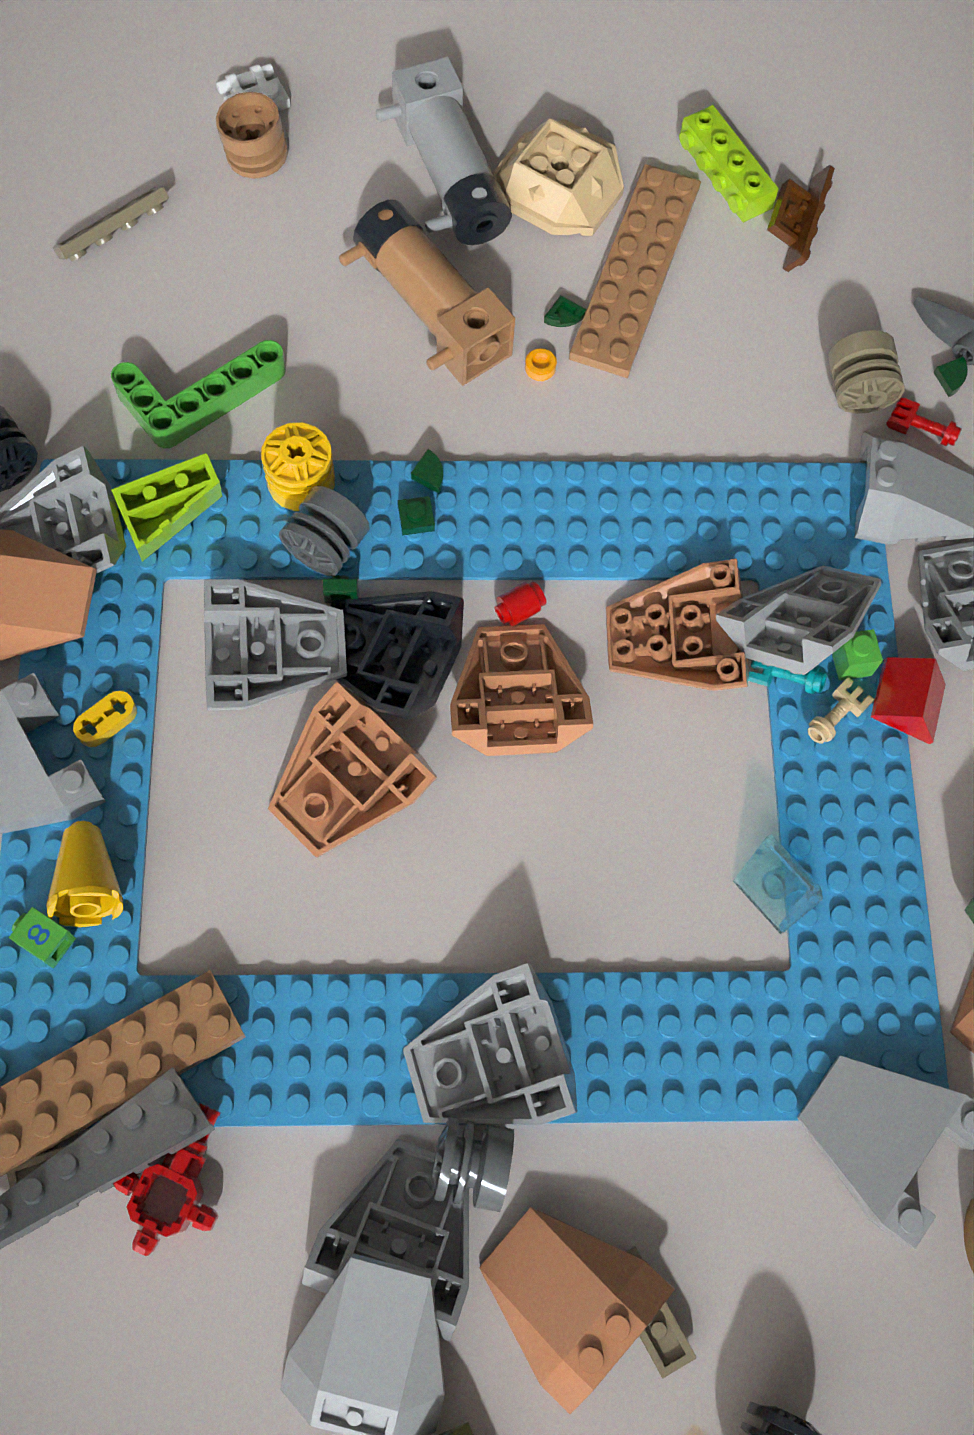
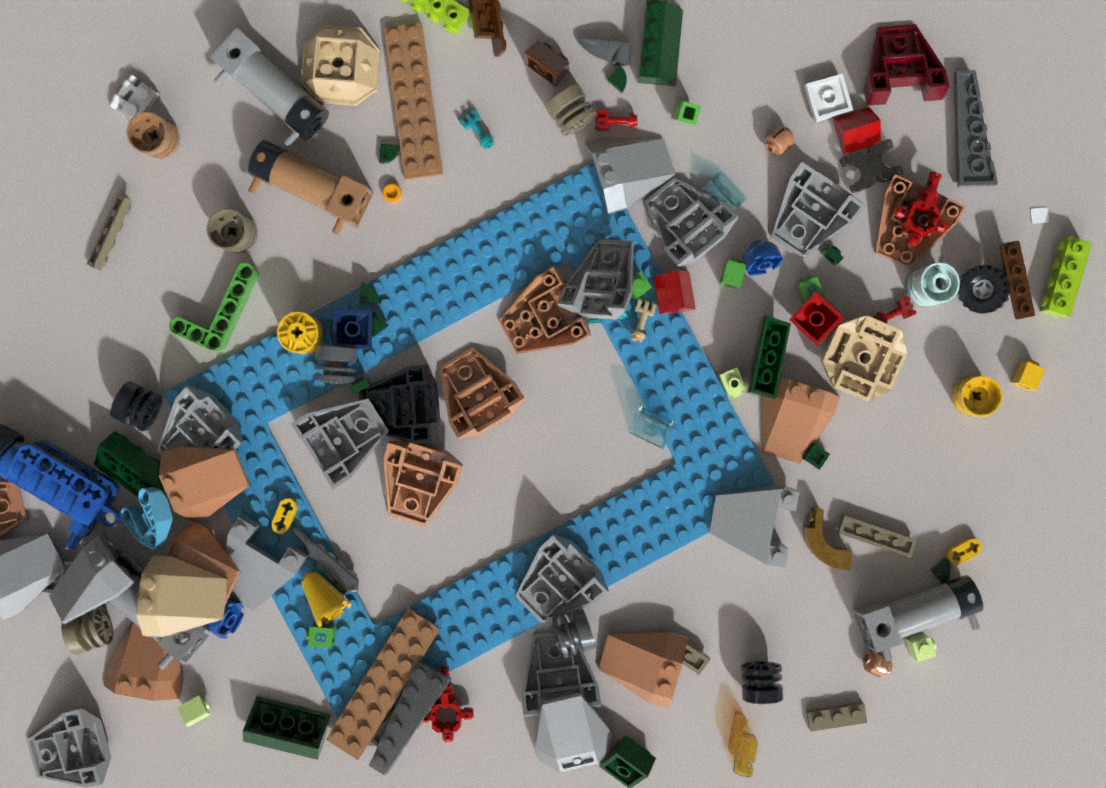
camera: 20 degrees left, 20 degrees up
(131, 847) = (336, 570): none -> flat silver sword
(166, 502) = (244, 390): lime wedge -> none
(283, 294) = (222, 229): none -> dark tan wheel
(381, 495) = (351, 328): none -> dark blue slope
(520, 603) = (454, 344): red brick -> none
(716, 360) = (486, 140): none -> teal hinge
(854, 300) = (546, 62): none -> reddish brown slope
(947, 882) = (732, 382): none -> yellowish green brick

